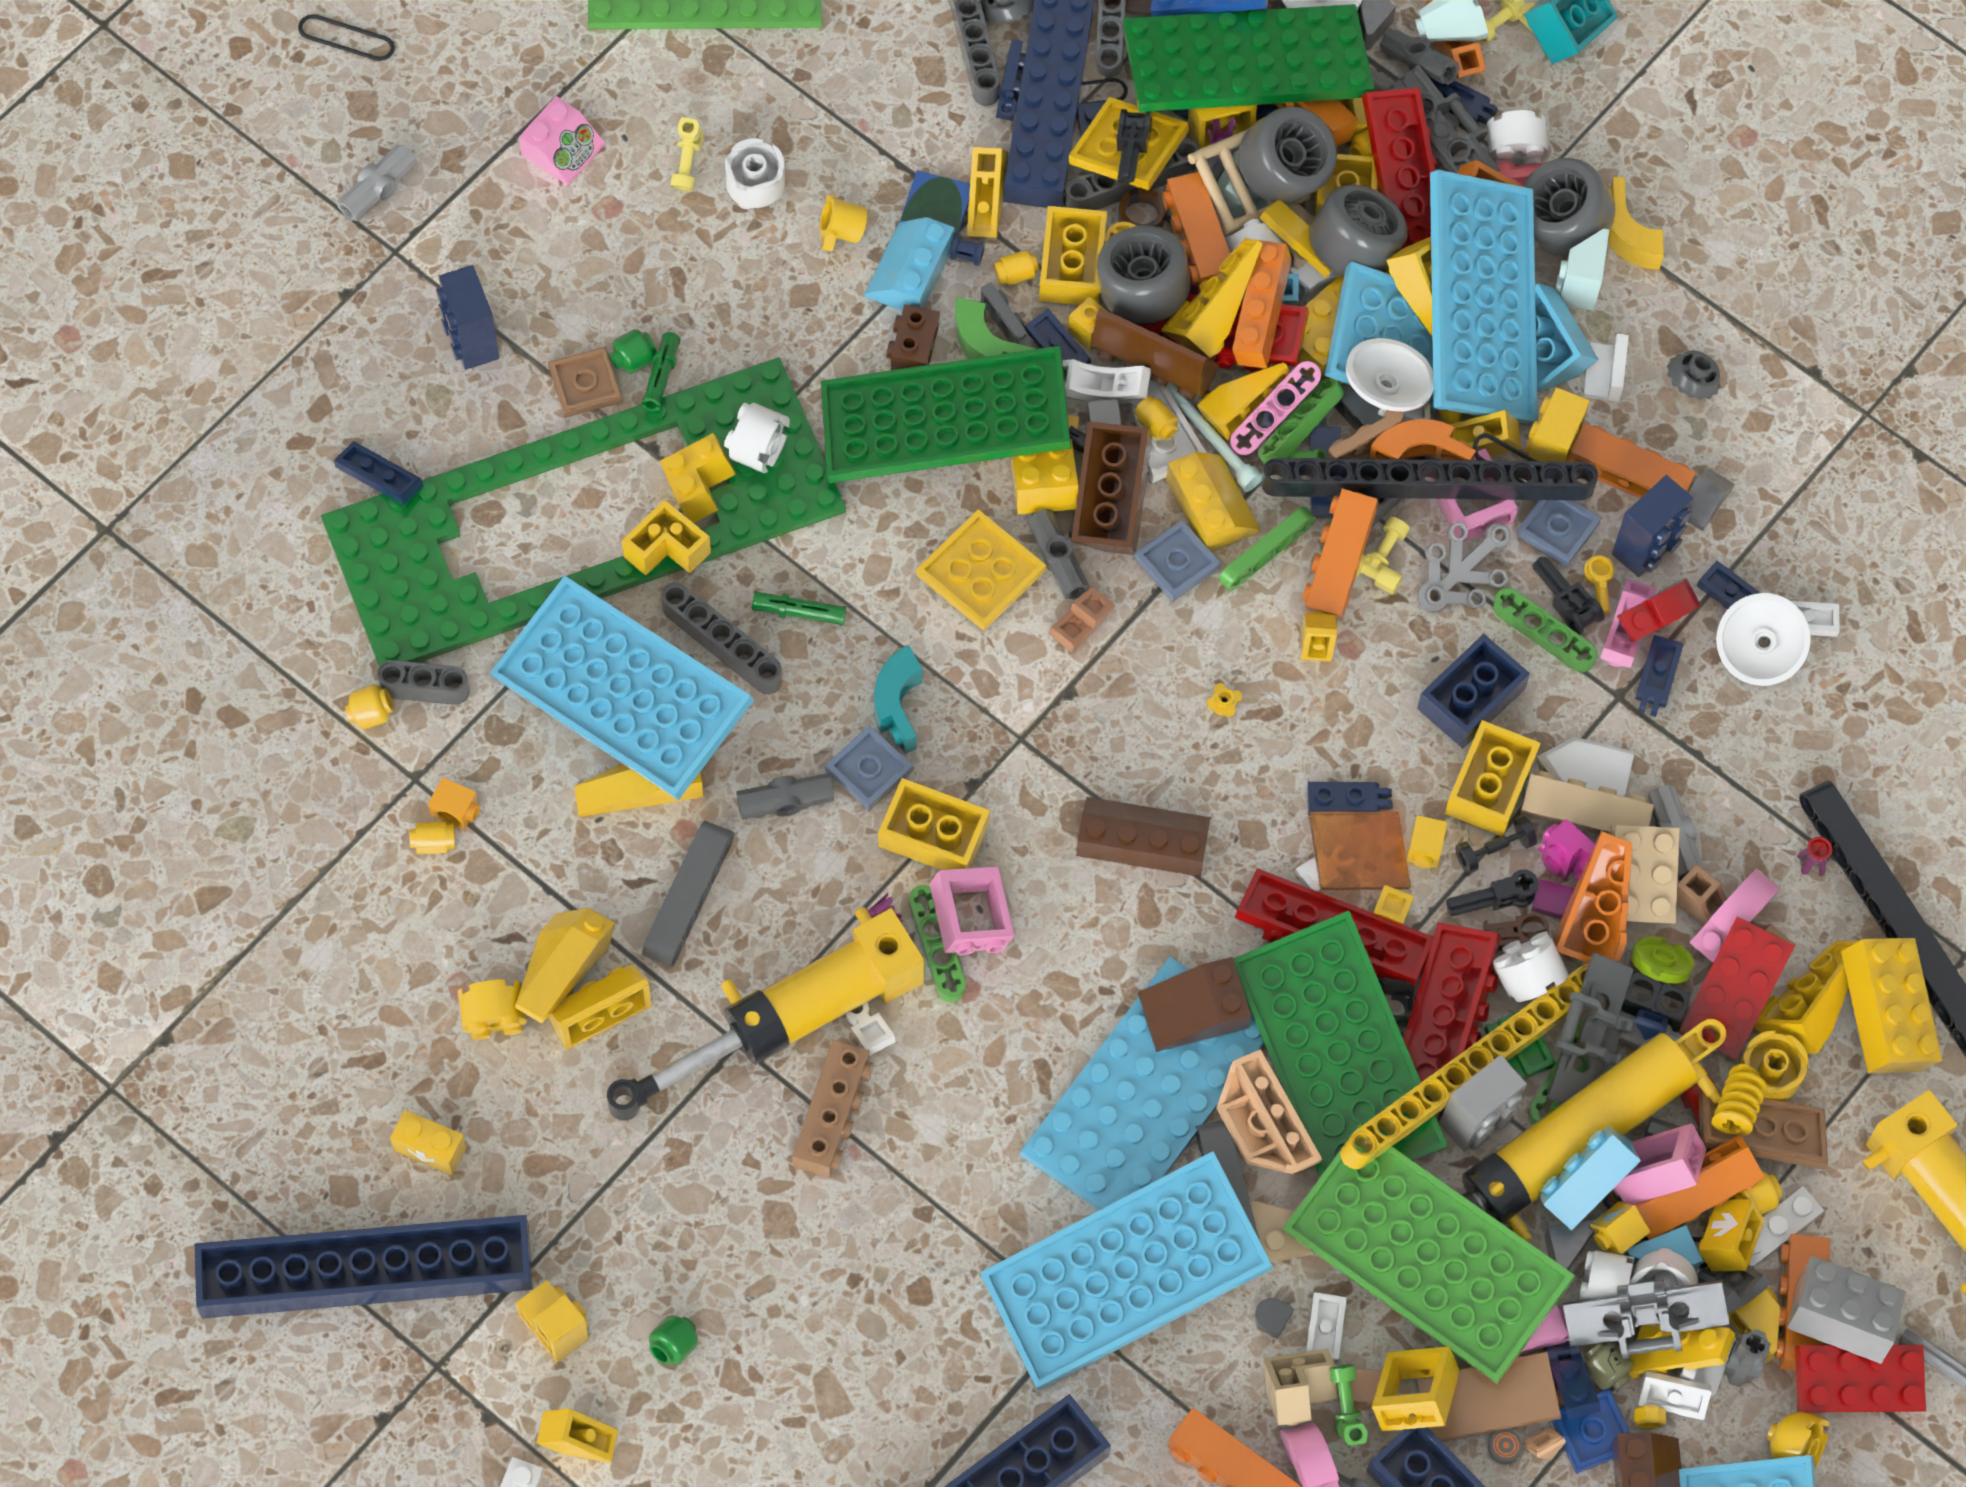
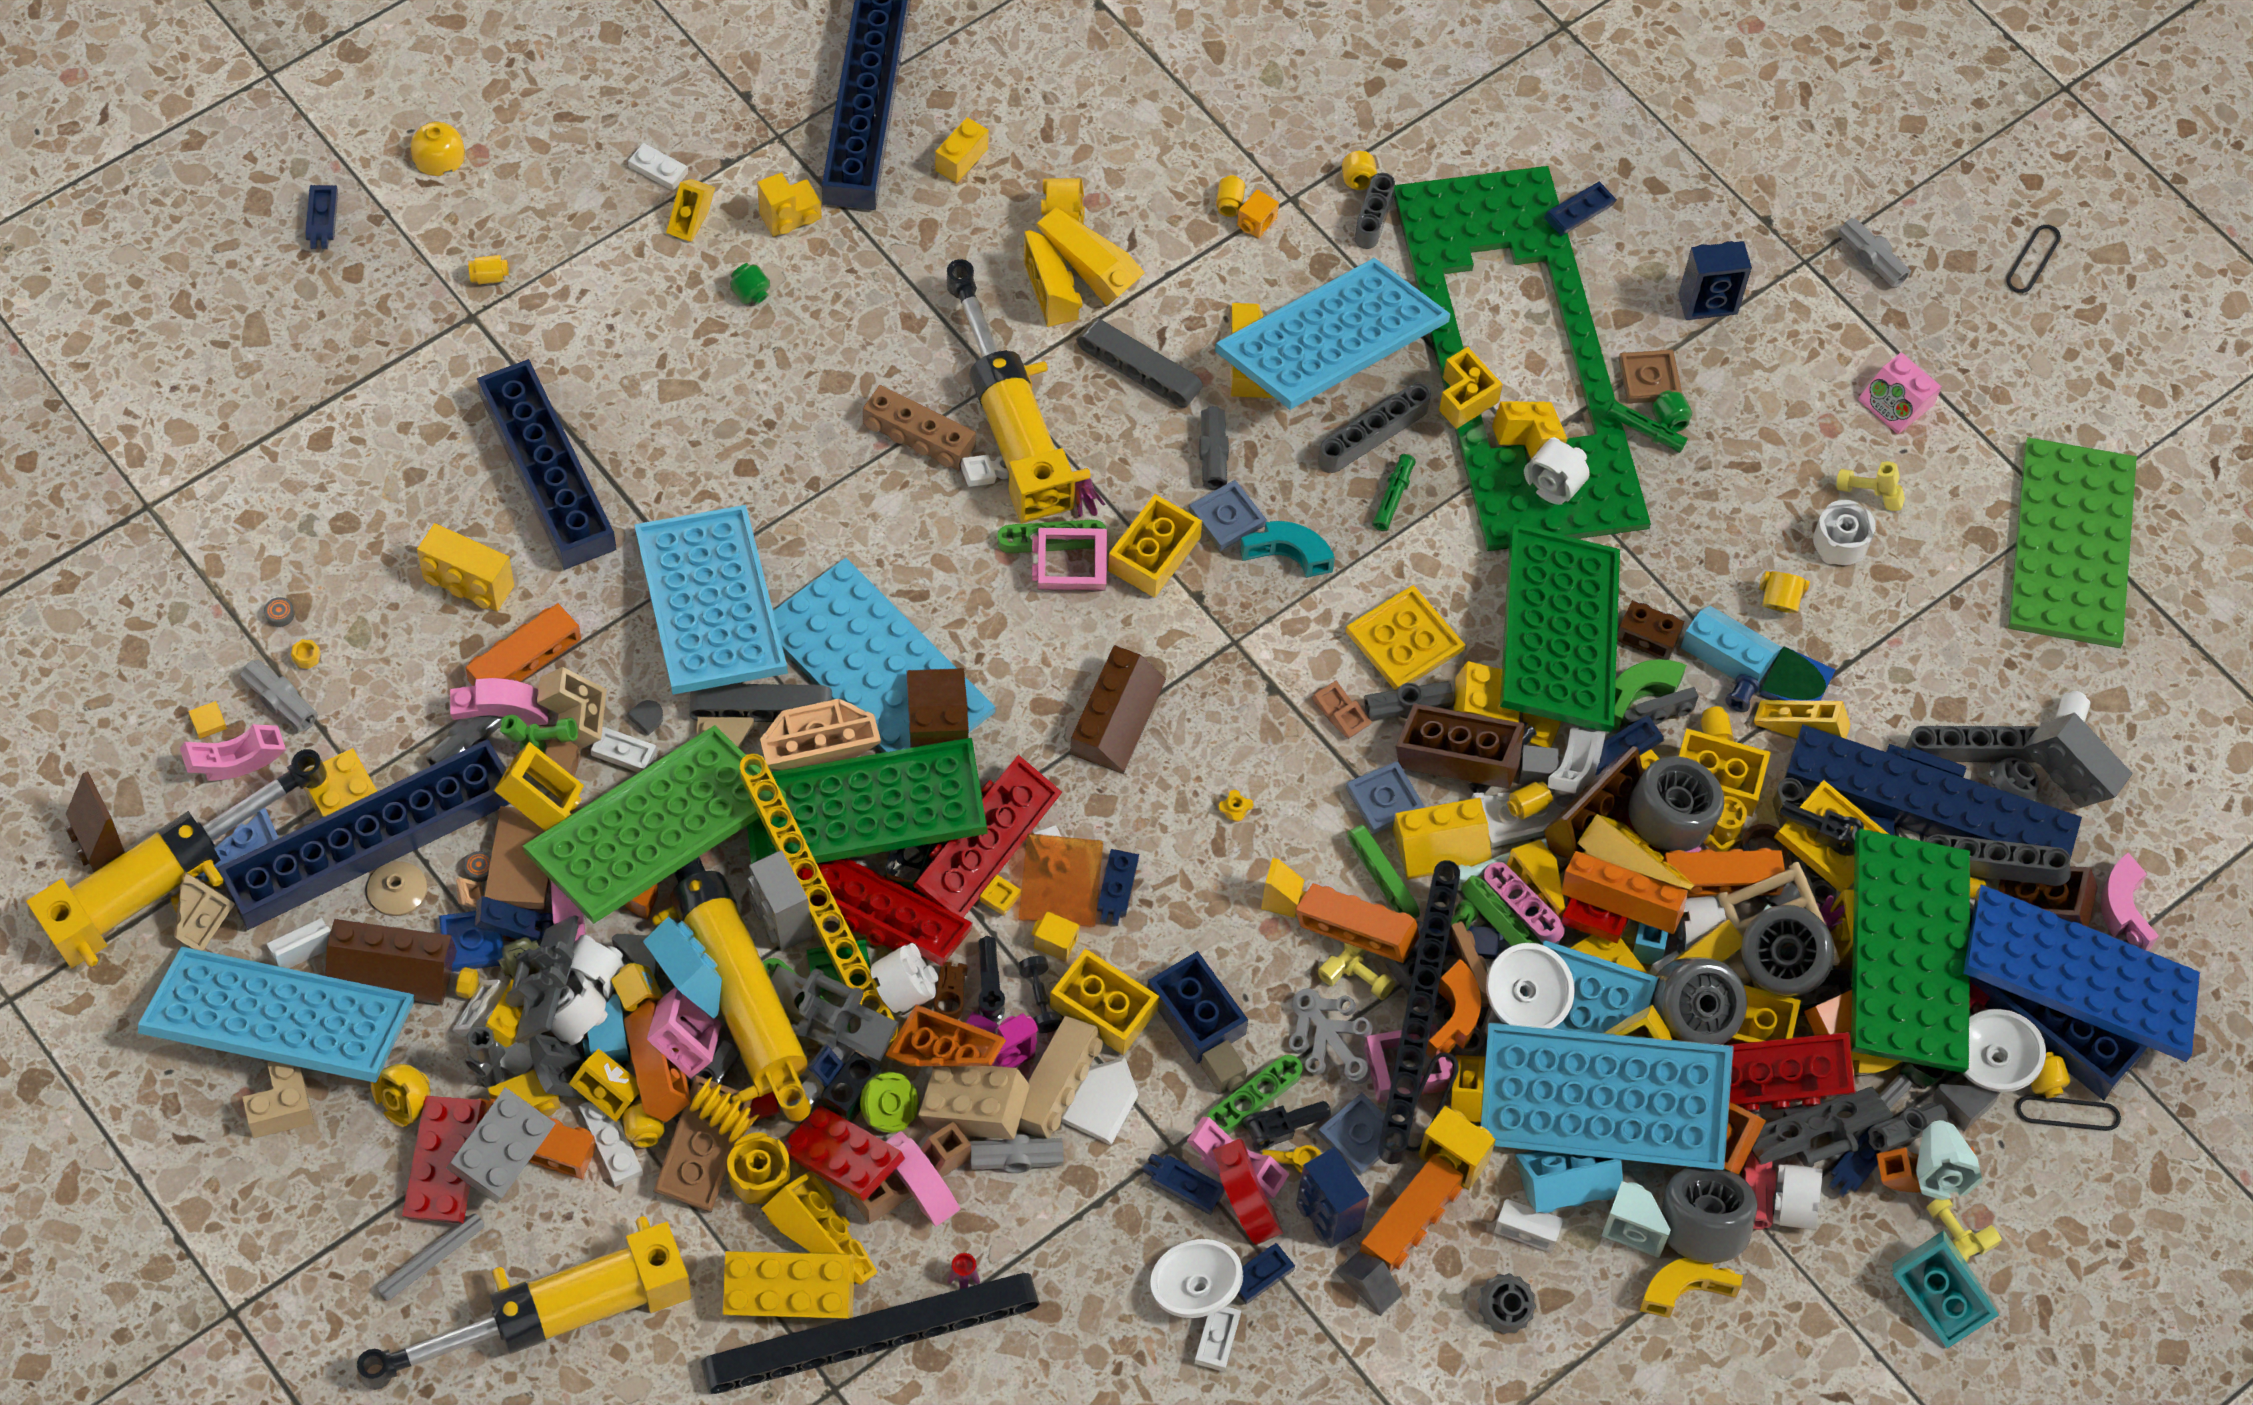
camera: 100 degrees right, 5 degrees down
(1531, 653) = (1224, 1067): none -> dark tan brick

